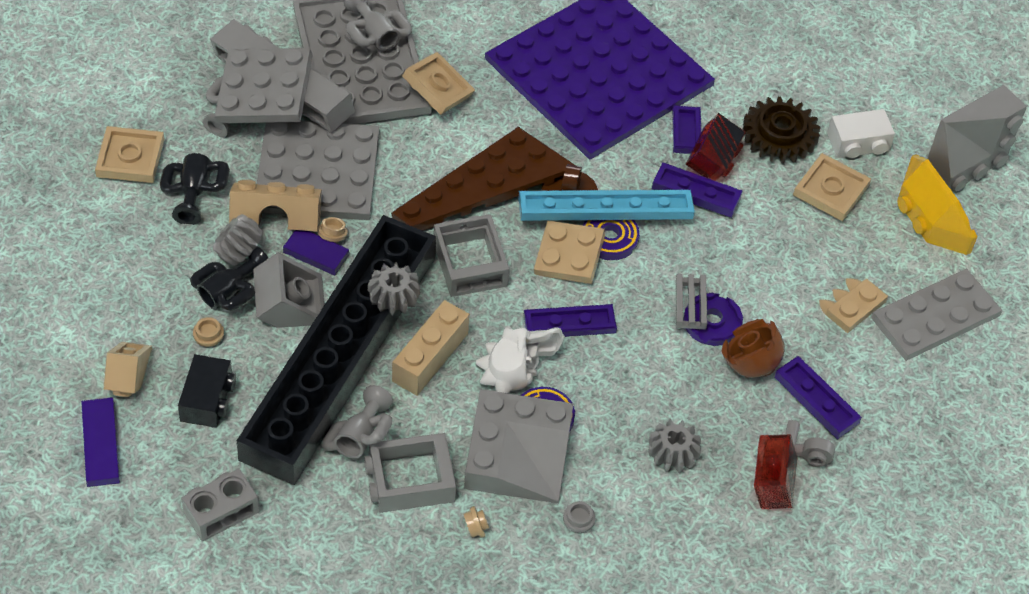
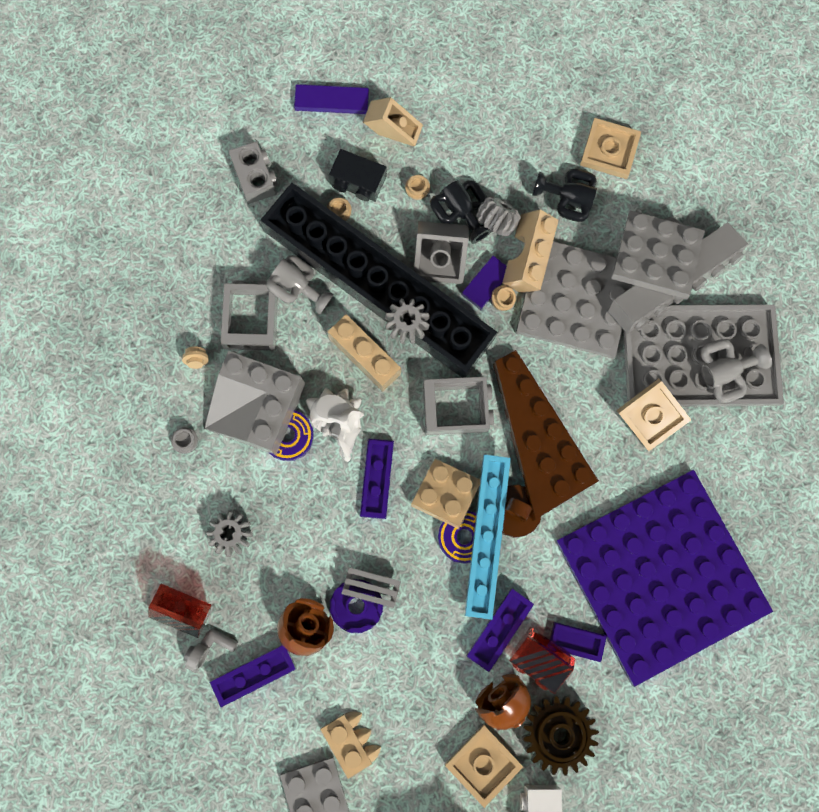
camera: 100 degrees right, 25 degrees up
(247, 405) = (340, 207): none -> tan plate
(768, 168) = (505, 704): none -> dark orange cylinder

